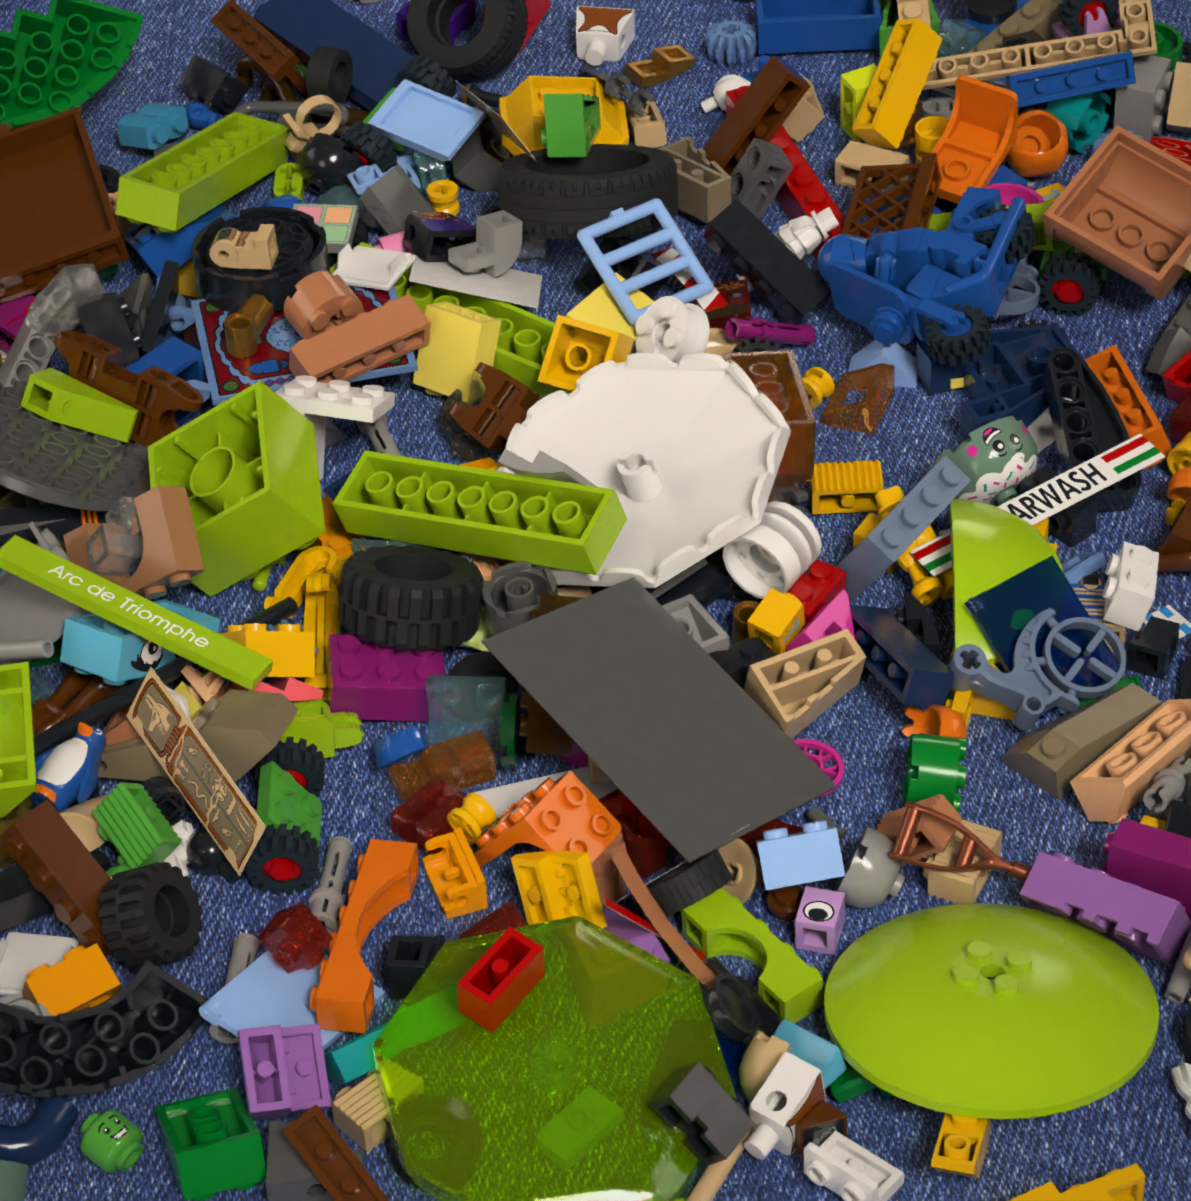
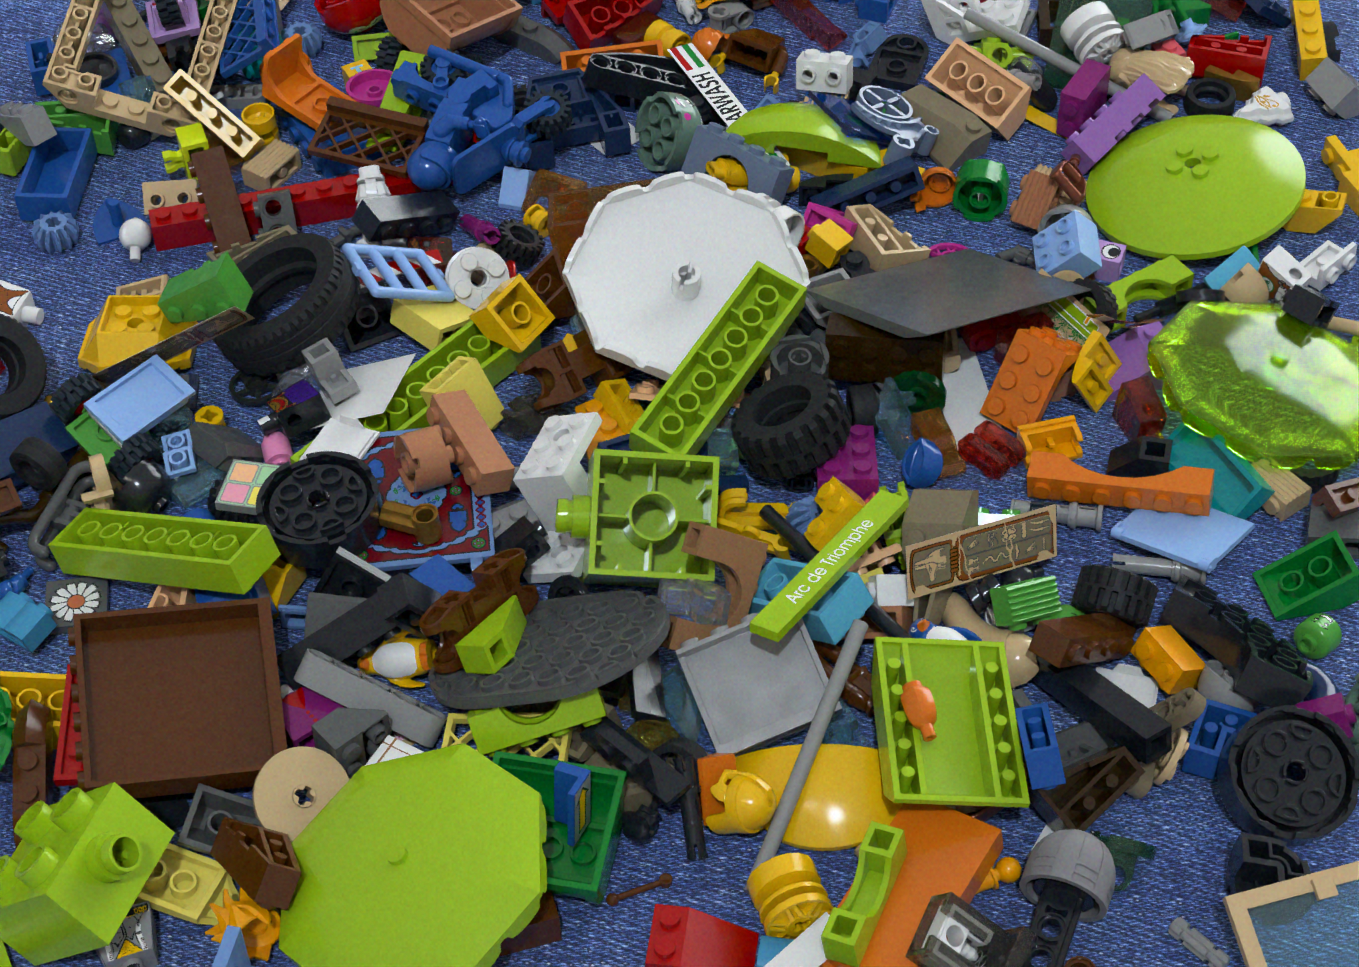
camera: 85 degrees left, 5 degrees up
(55, 305) = (362, 632): clear brick -> none
(245, 249) = (340, 493): tan leg -> none
(283, 1070) = (1269, 523): medium lavender brick -> none
(296, 938) = (1135, 503): clear red brick -> none
(472, 816) = (1008, 418): yellow wheel -> none
(501, 979) = (1245, 358): red brick -> none
(542, 467) = (709, 308): light grey slope -> none
(615, 89) = (126, 284): dark grey flag -> none
(663, 66) = (63, 281): pearl gold slope -> none

